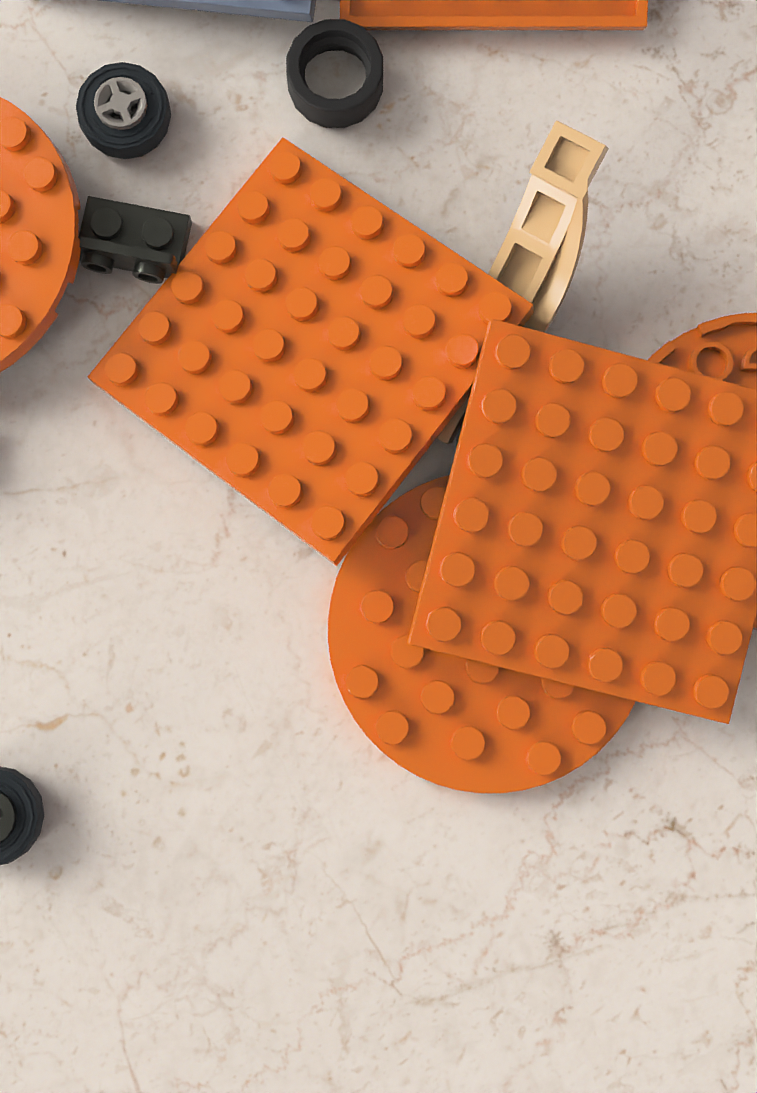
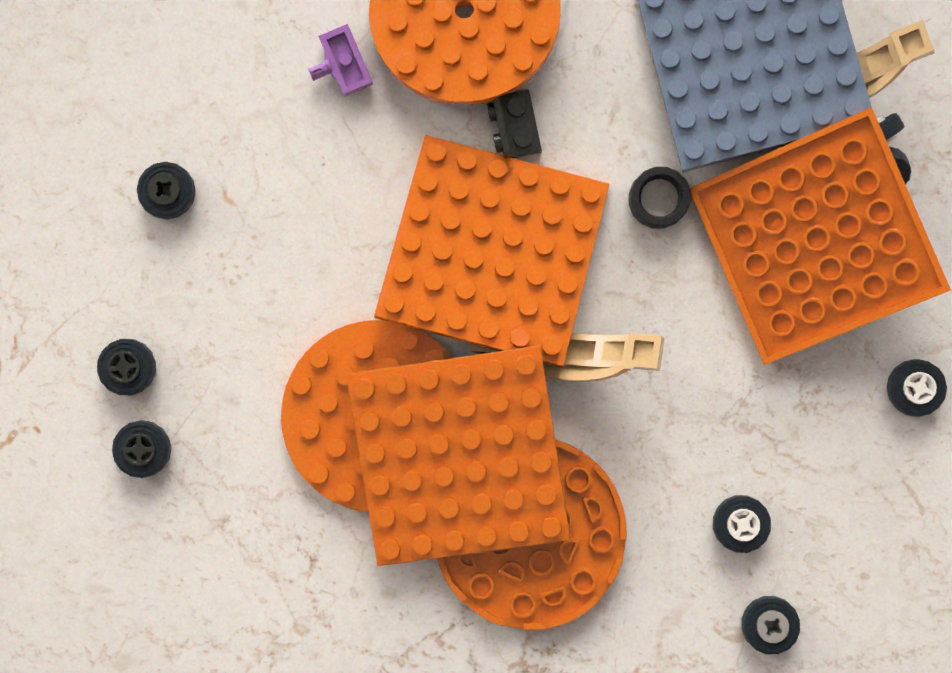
camera: 70 degrees right, 5 degrees up
(115, 92) = (594, 78): black wheel -> none
(241, 1021) = (114, 368): none -> black wheel
(381, 1051) = (128, 449): none -> black wheel

